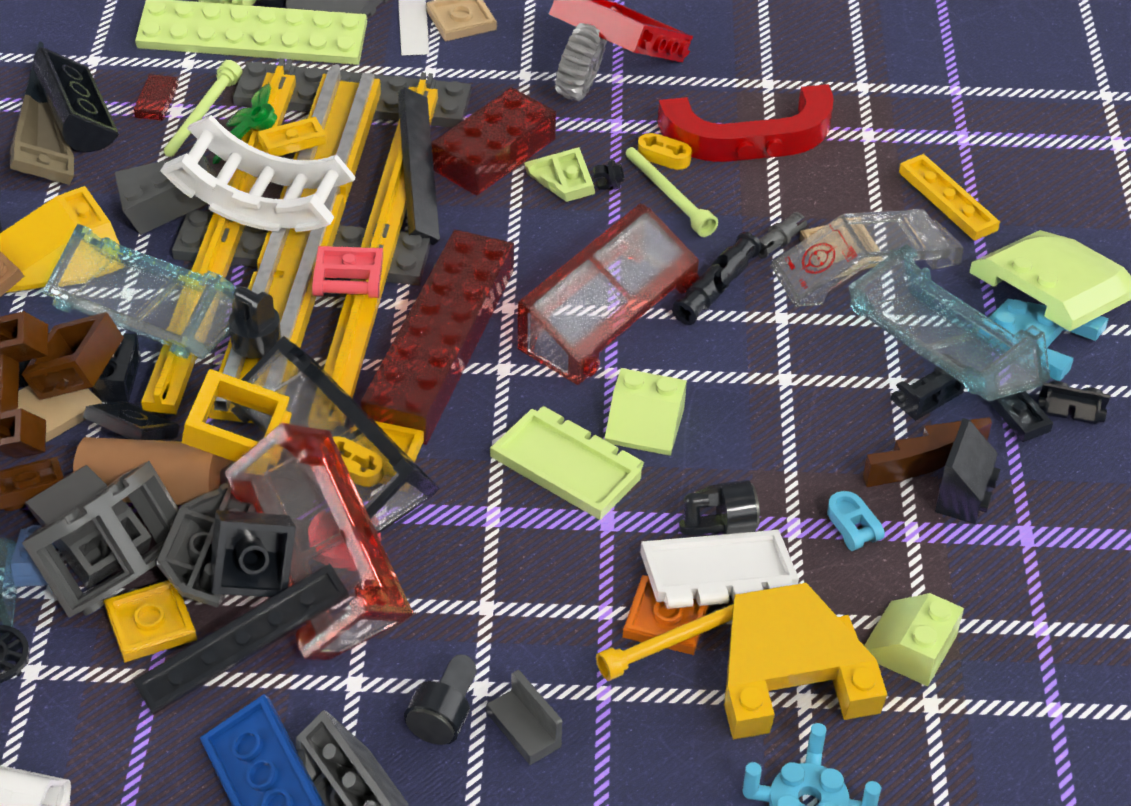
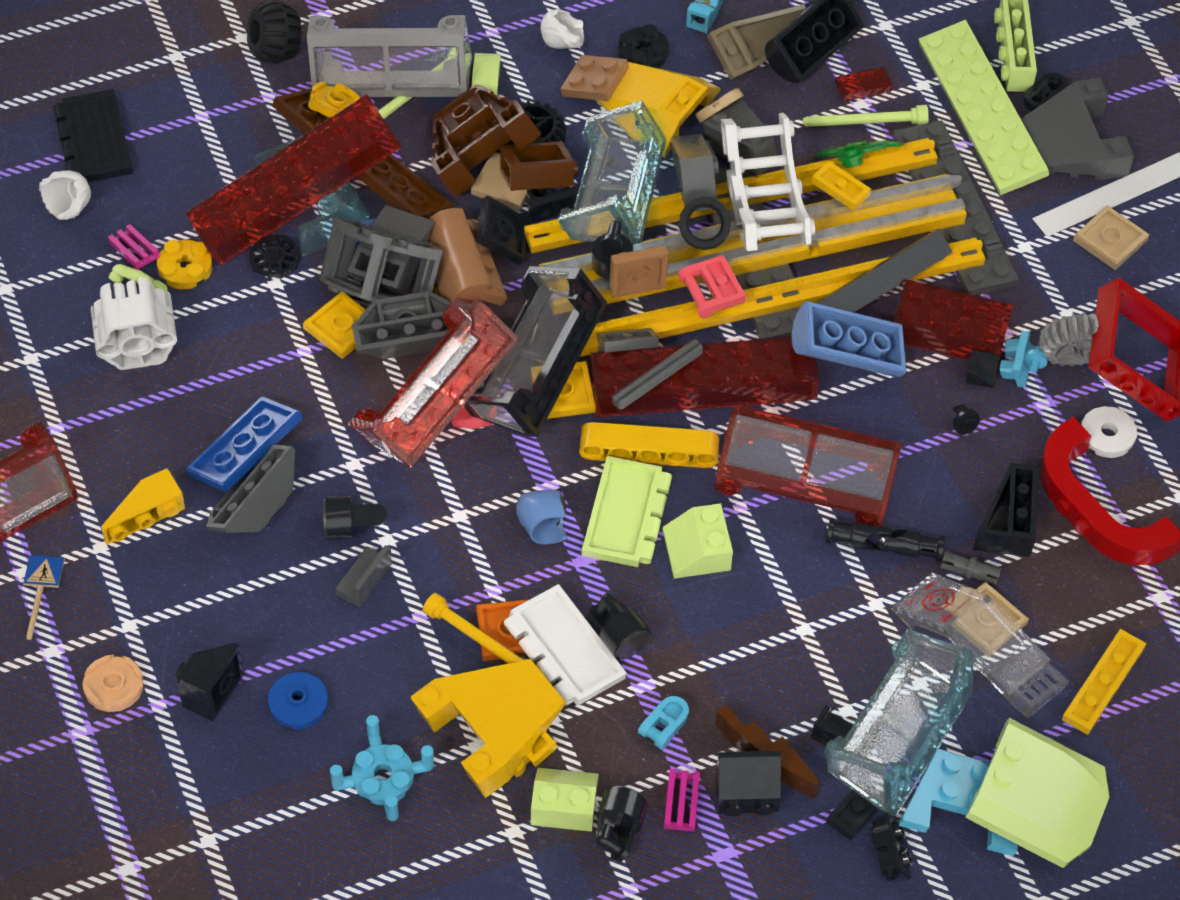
camera: 65 degrees right, 10 degrees up
(110, 189) = (719, 105): none -> tan tile
(191, 226) = (694, 167): none -> dark grey wedge
(220, 441) = (498, 256): yellow window -> none
(240, 639) = (344, 380): black tile -> none
(251, 553) = (400, 346): black slope -> none
(286, 227) = (715, 205): none -> black tyre
(300, 306) = (638, 271): none -> medium nougat plate
(358, 456) = (518, 370): yellow beam -> none
(365, 367) = (627, 340): none -> dark grey panel
(436, 351) = (657, 374): none -> dark grey axle
(482, 201) = (849, 339): none -> medium blue brick
(497, 409) = (650, 444): none -> yellow beam
(540, 522) = (542, 515): none -> medium blue piece
(554, 141) = (982, 368): none -> black slope
(563, 174) = (946, 388): yellowish green wing -> none
(570, 111) = (1026, 359): none -> medium azure hips
(665, 151) = (1033, 448): yellow beam -> none
(678, 86) = (1118, 422): none -> white tile
(701, 220) = (951, 505): yellowish green piece -> none
(740, 178) = (1012, 515): none -> black wedge
(954, 539) = (684, 777): none -> dark pink tile
(966, 587) = (623, 812): none -> black piece

